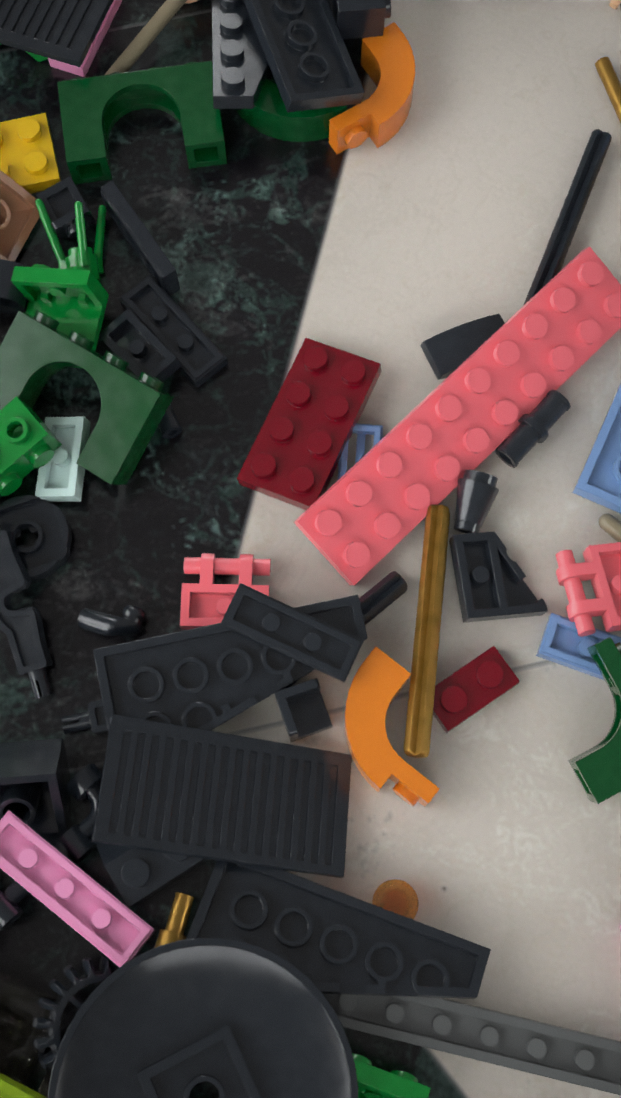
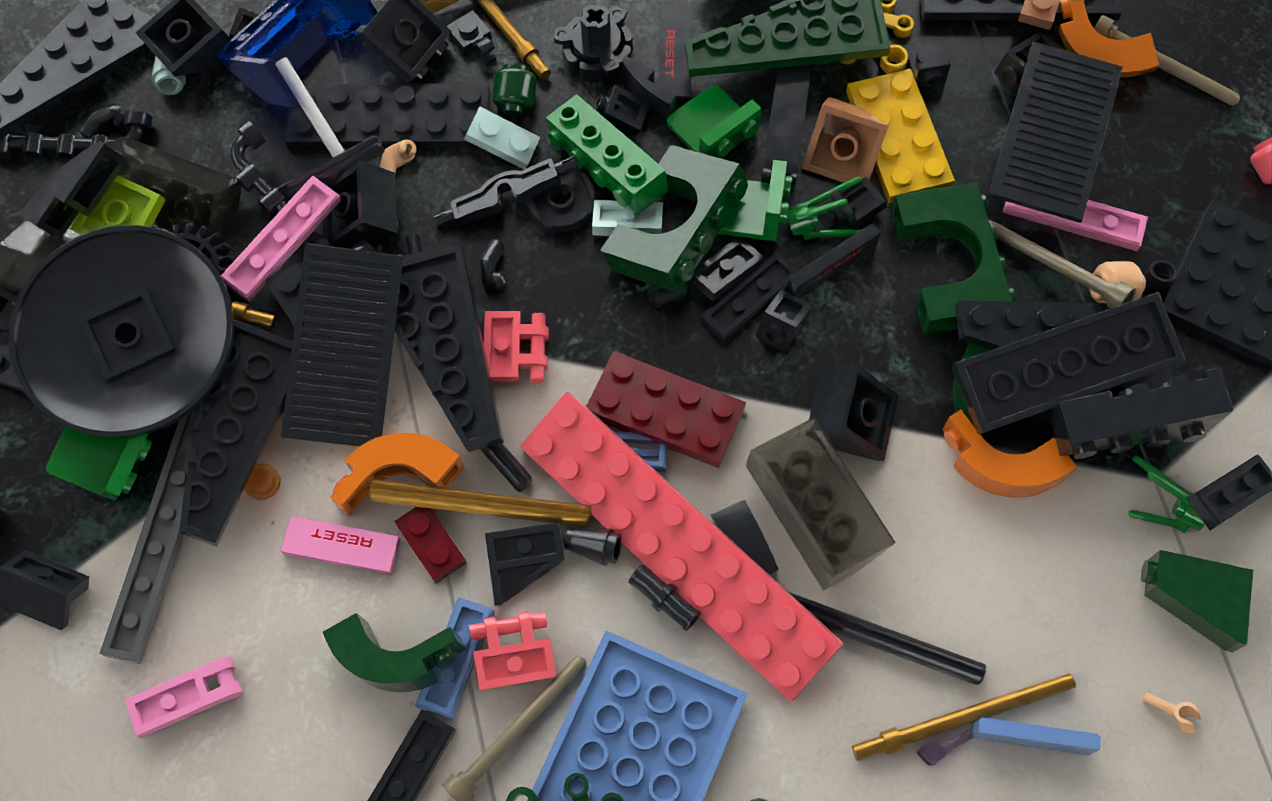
camera: 90 degrees right, 5 degrees down
(208, 293) = (783, 320): none -> black bracket
(292, 632) = (468, 387): black tile -> none
(303, 710) = (413, 405): black panel -> none
(321, 232) = (854, 410): none -> black slope
(432, 263) = (818, 503): none -> clear smoke slope
(476, 798) = (341, 545): none -> bright pink tile

